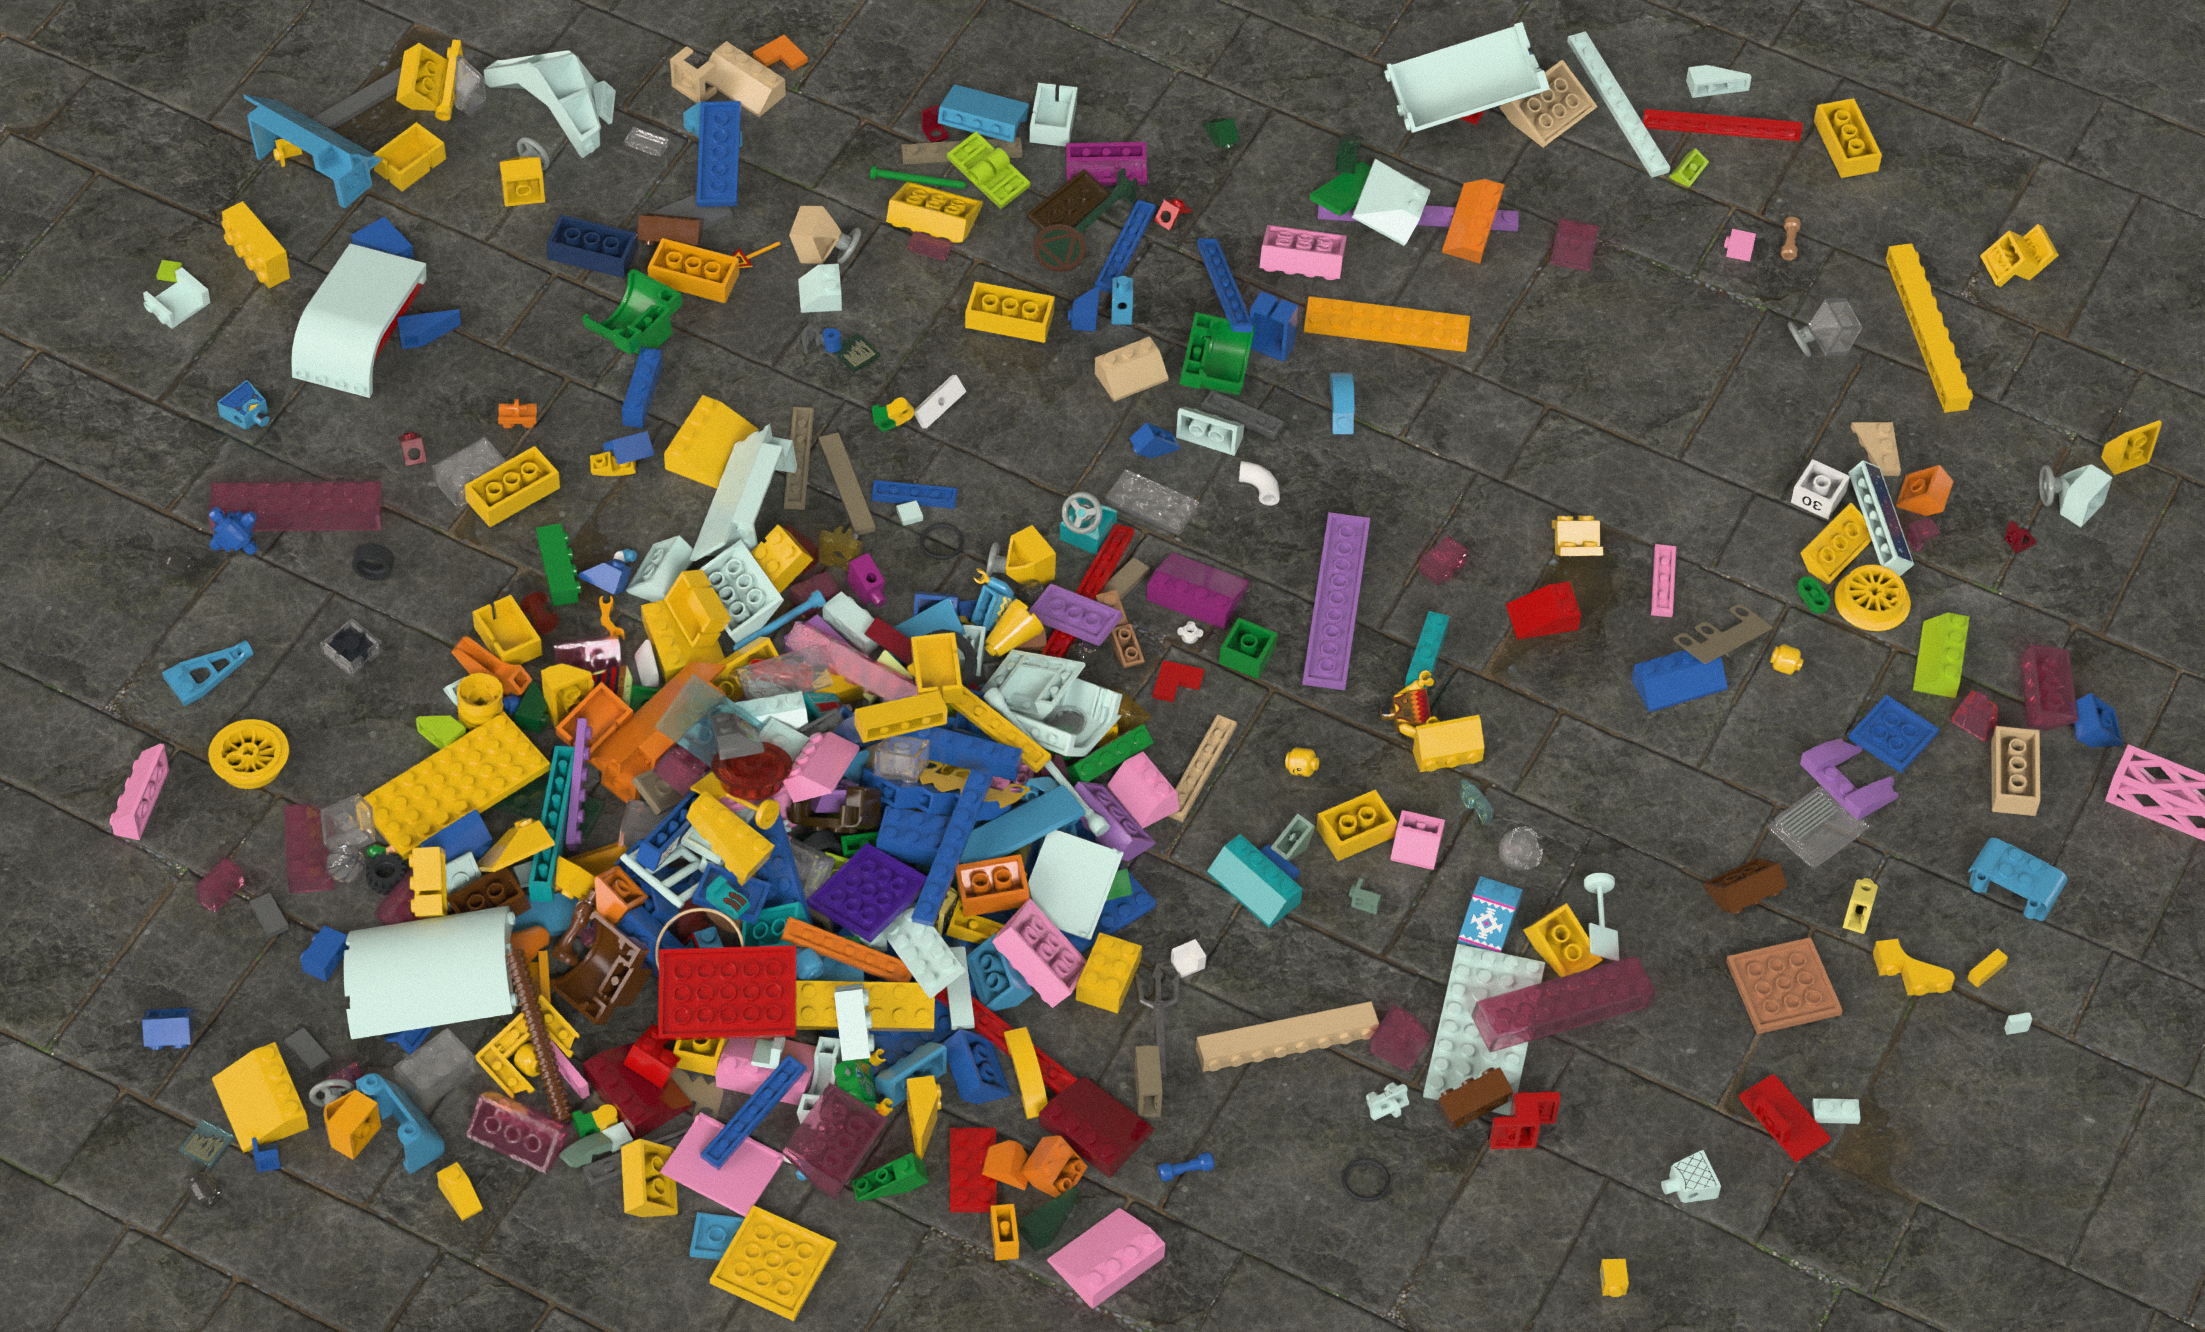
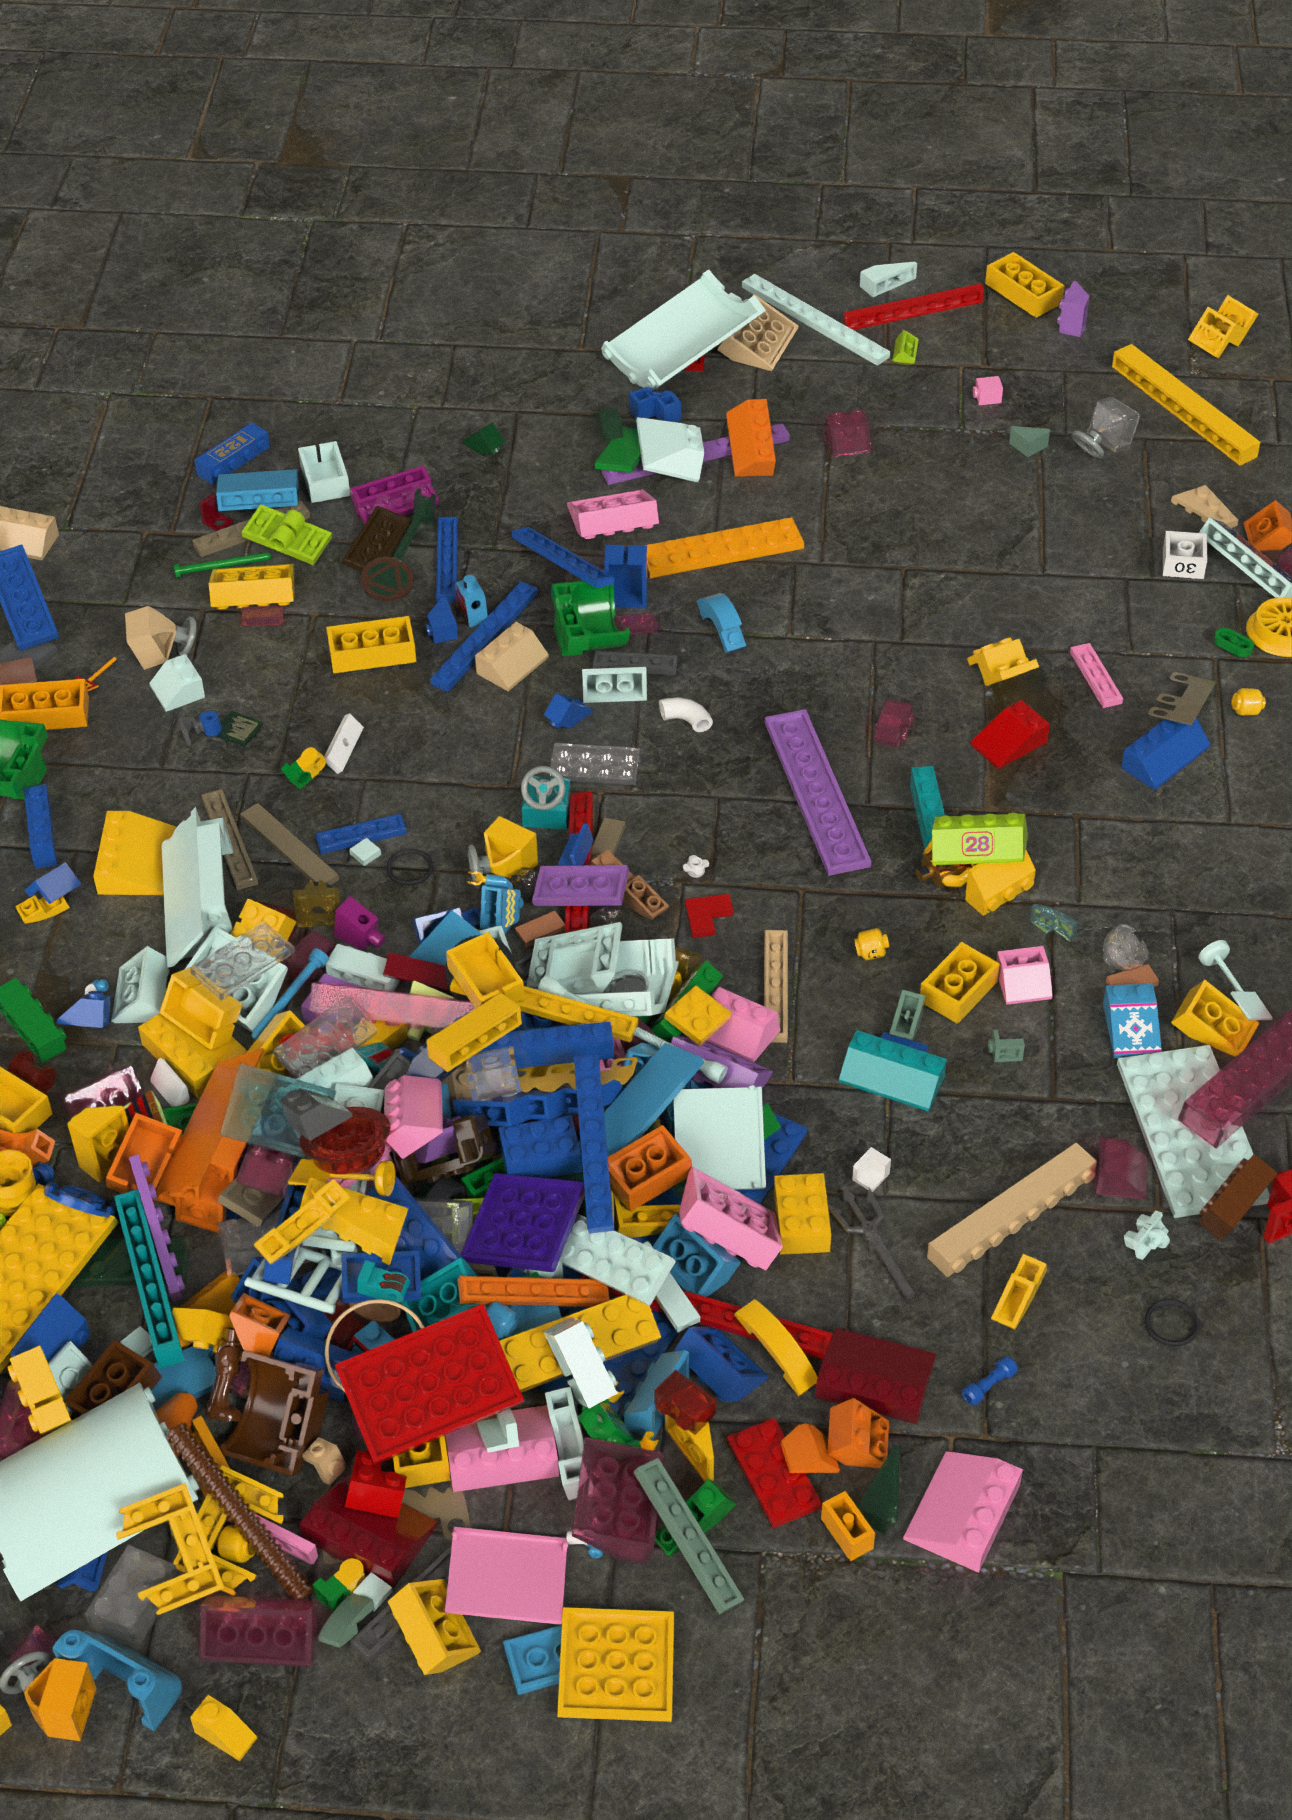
camera: 20 degrees left, 5 degrees down
(492, 1069) = (202, 1574): none -> yellow wedge
(516, 844) = (119, 1314): yellow slope -> none
(528, 737) = (80, 1199): none -> blue tile
(533, 710) = (69, 1168): dark green slope -> none
(605, 619) = (104, 1057): light orange piece -> none
(627, 1022) = (326, 1460): none -> tan bracket
(681, 826) = (302, 1223): none -> yellow slope
(747, 579) = (242, 960): none -> clear plate
(753, 1112) = (515, 1504): blue tile -> none
(781, 49) = (40, 497): orange tile -> none
(874, 1189) = (688, 1536): none -> sand green plate
(919, 1085) = (684, 1402): none -> clear red brick
(980, 63) = (232, 453): none -> blue brick
(1013, 629) = (529, 918): yellow cone -> none
(1090, 579) = (577, 848): none -> blue panel
(1108, 770) = (697, 1015): none -> yellow plate
(1119, 337) = (488, 630): none -> blue plate
(1148, 1081) = (906, 1306): dark tan brick -> none
(1174, 207) = (477, 512): bracket -> none
(1196, 590) = (680, 827): magenta slope -> none
(1248, 648) = (762, 859): green brick -> none
(1252, 1106) = (1019, 1291): none -> yellow slope
(1263, 376) = (637, 623): none -> clear pink plate
(1396, 145) = (647, 403): none -> blue brick
(1440, 702) = (979, 839): none -> lime slope
(1520, 879) = (1140, 975): none -> nougat tile
(1748, 313) = (1029, 439): none -> sand green slope
(1789, 250) = (1021, 365): medium nougat piece -> none
(1837, 544) = (1227, 595): yellow slope -> none
(1876, 186) = (1074, 310): none -> medium lavender slope

